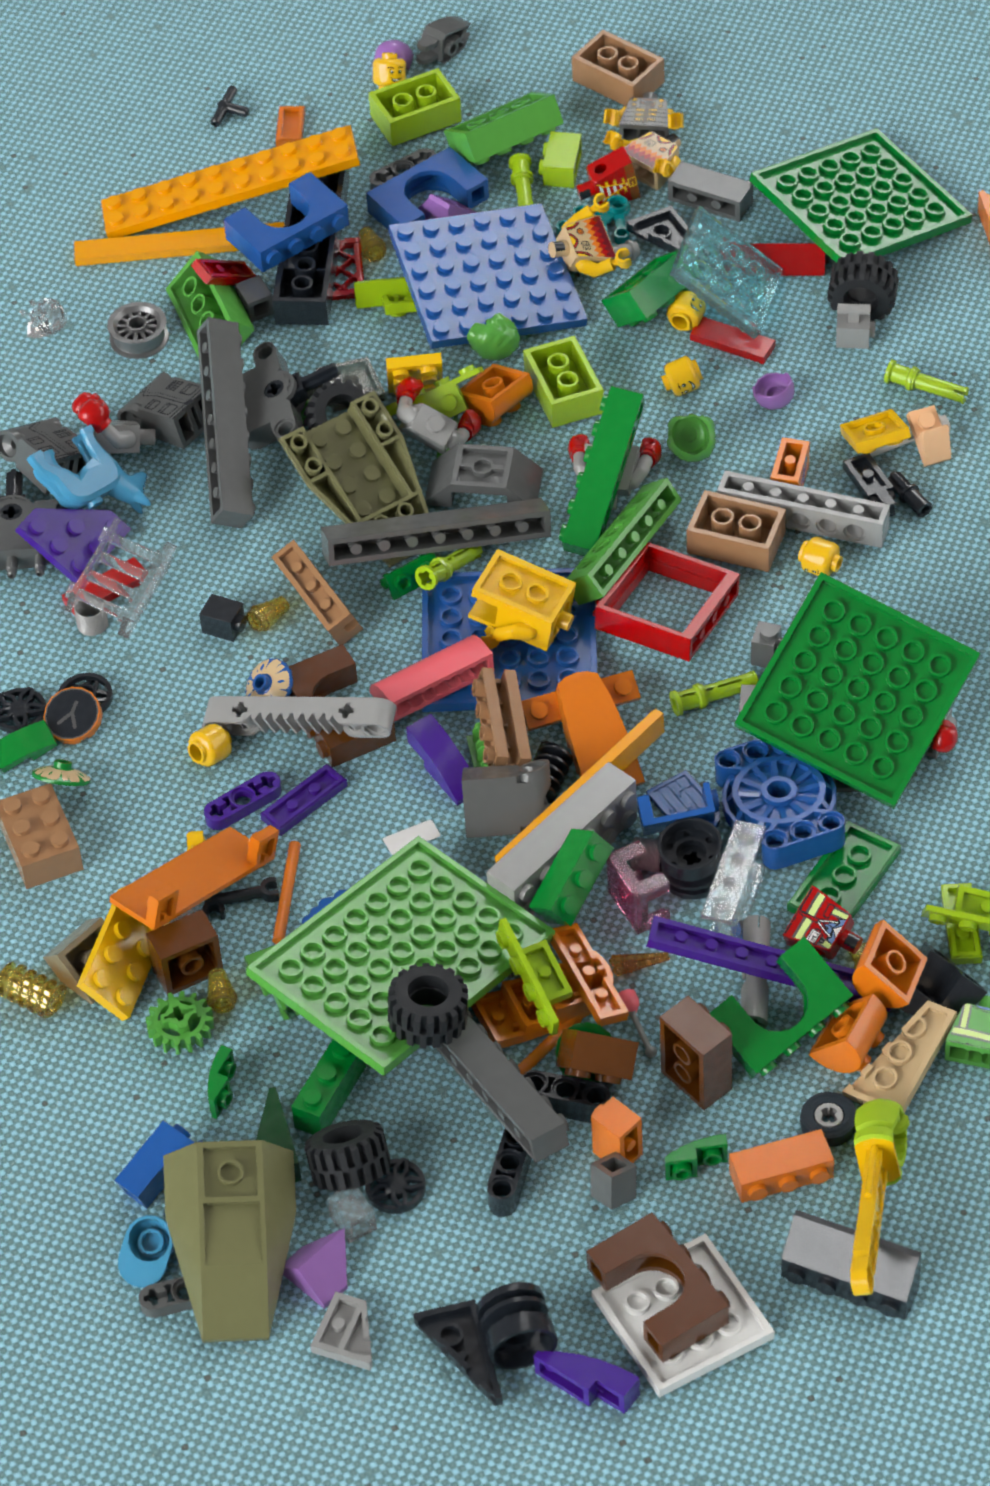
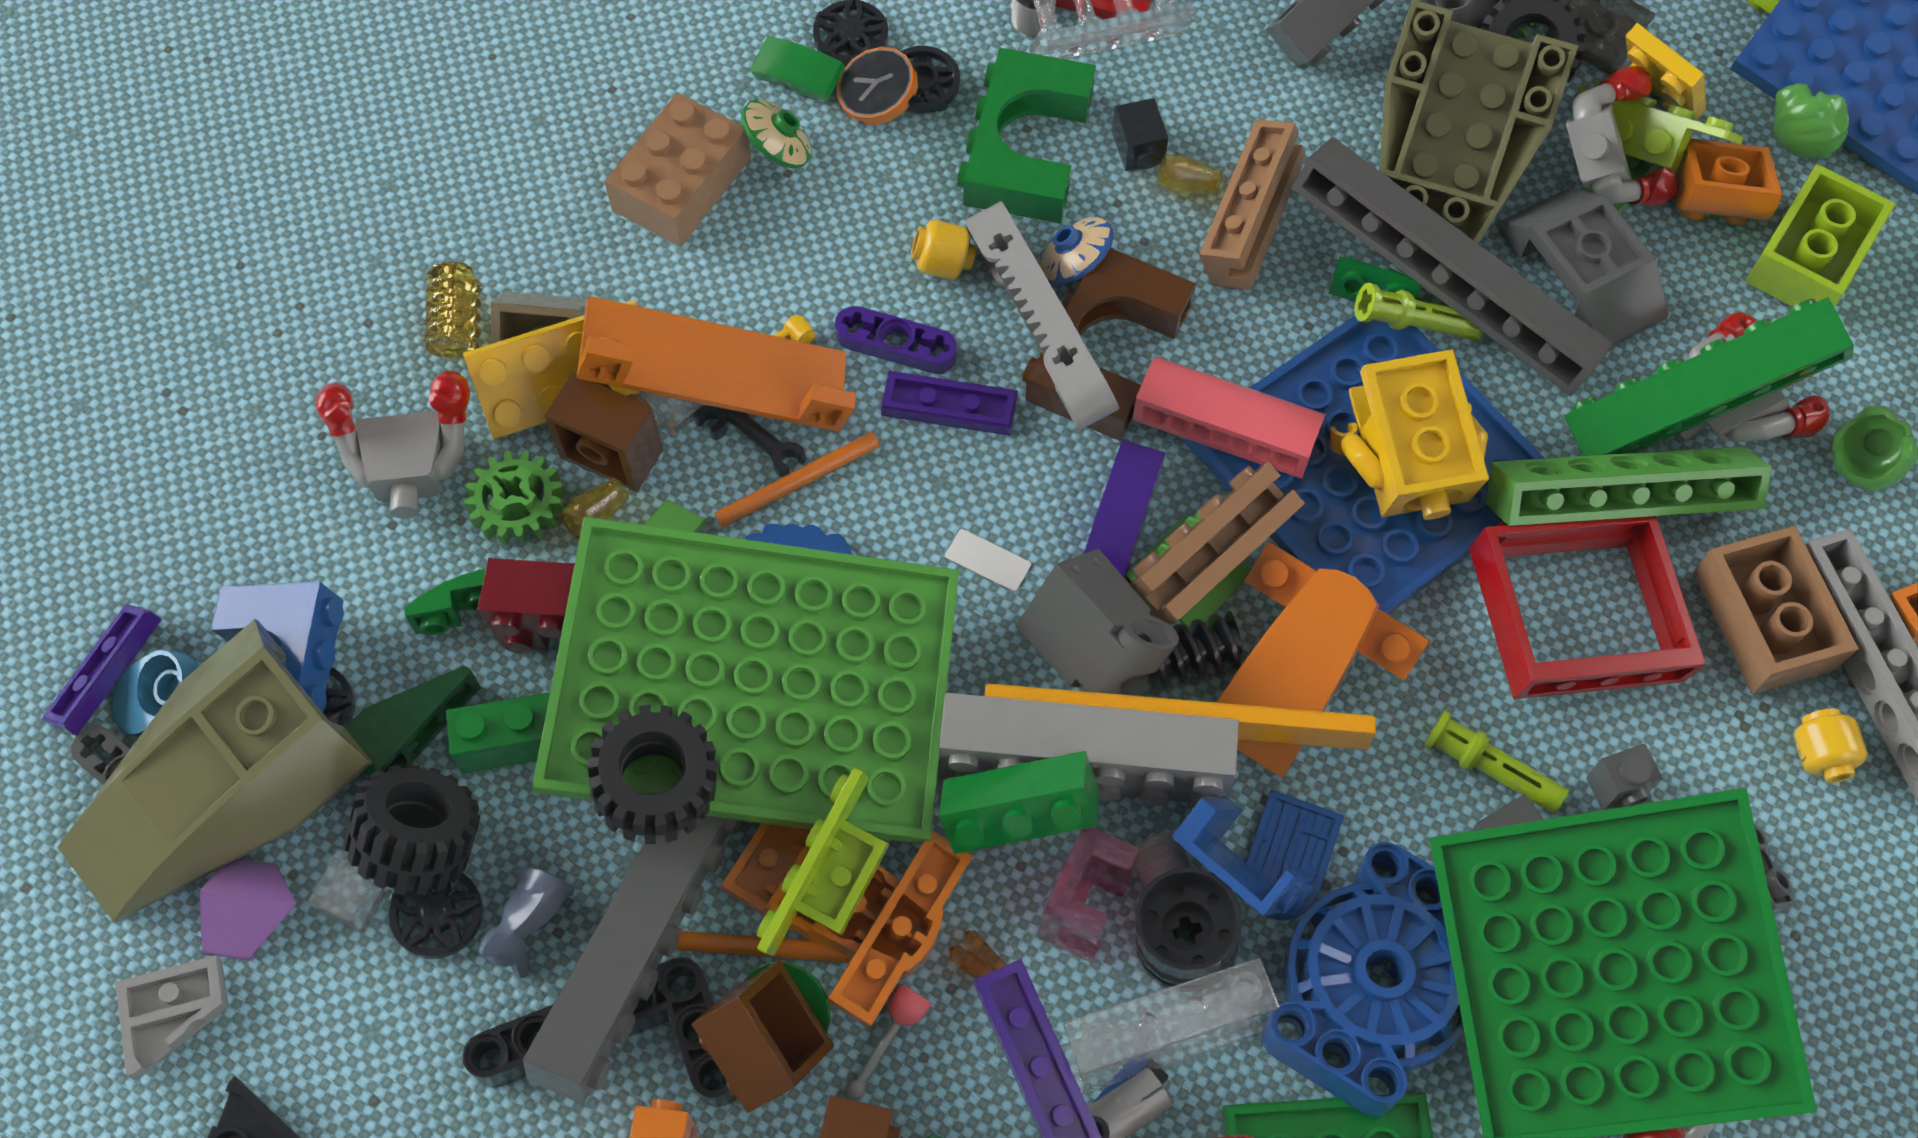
camera: 50 degrees right, 15 degrees up
(104, 1057) = (402, 453): none -> light grey torso
(106, 1272) = (101, 669): none -> dark purple tile
(180, 695) = (1021, 87): none -> green arch
(260, 1031) = (525, 602): none -> dark red brick
(434, 1135) = (528, 909): none -> sand blue animal

